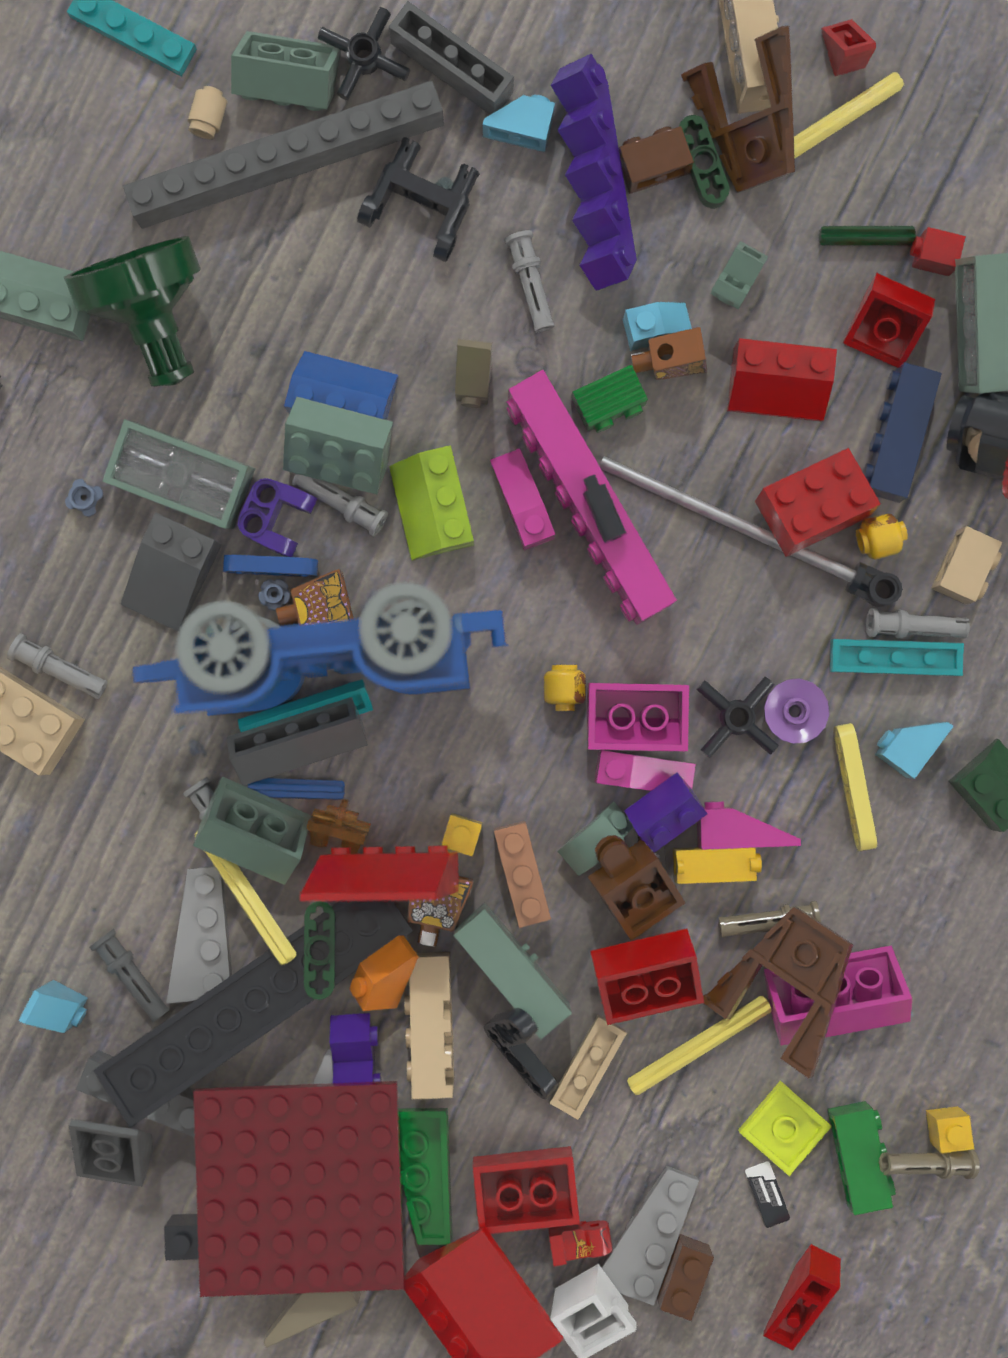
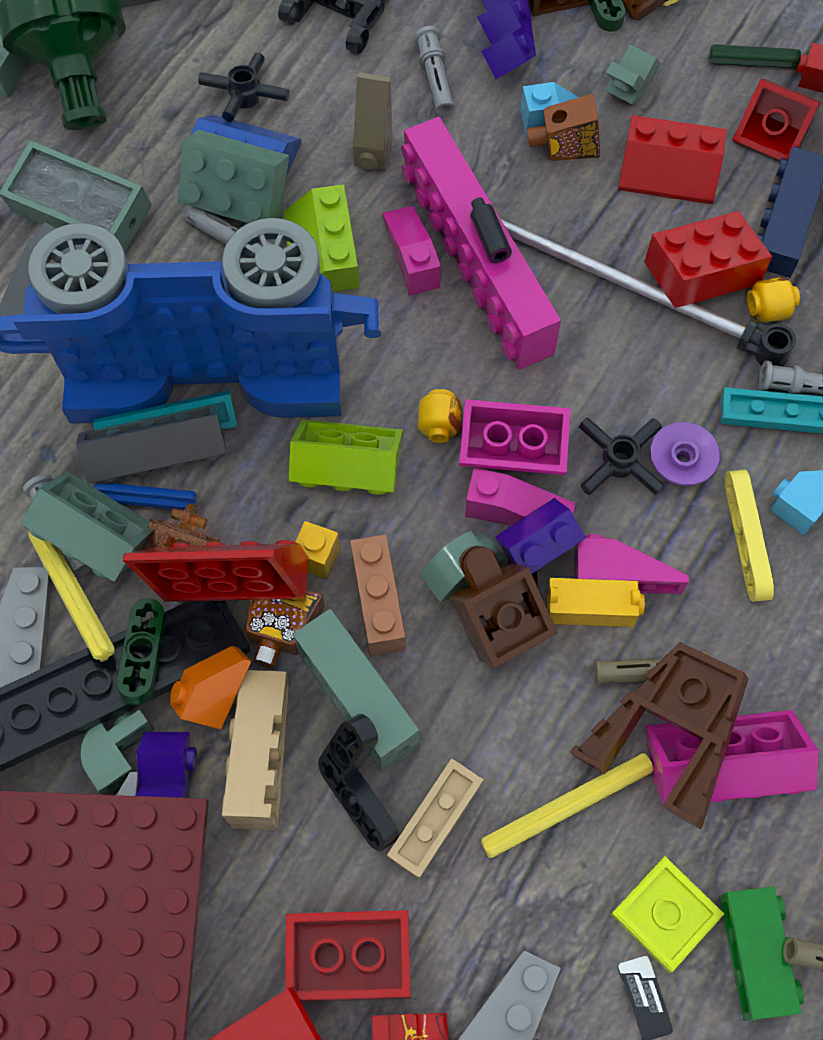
camera: 10 degrees right, 20 degrees down
(269, 512) = (157, 239): dark purple piece -> none
(299, 1039) = (104, 748): none -> sand green brick
(327, 309) = (243, 87): none -> black bar
(426, 1172) = (231, 931): green wing -> none
(480, 734) = (345, 456): none -> lime slope
(610, 399) = (505, 165): green brick -> none
(647, 976) = (511, 709): red brick -> none

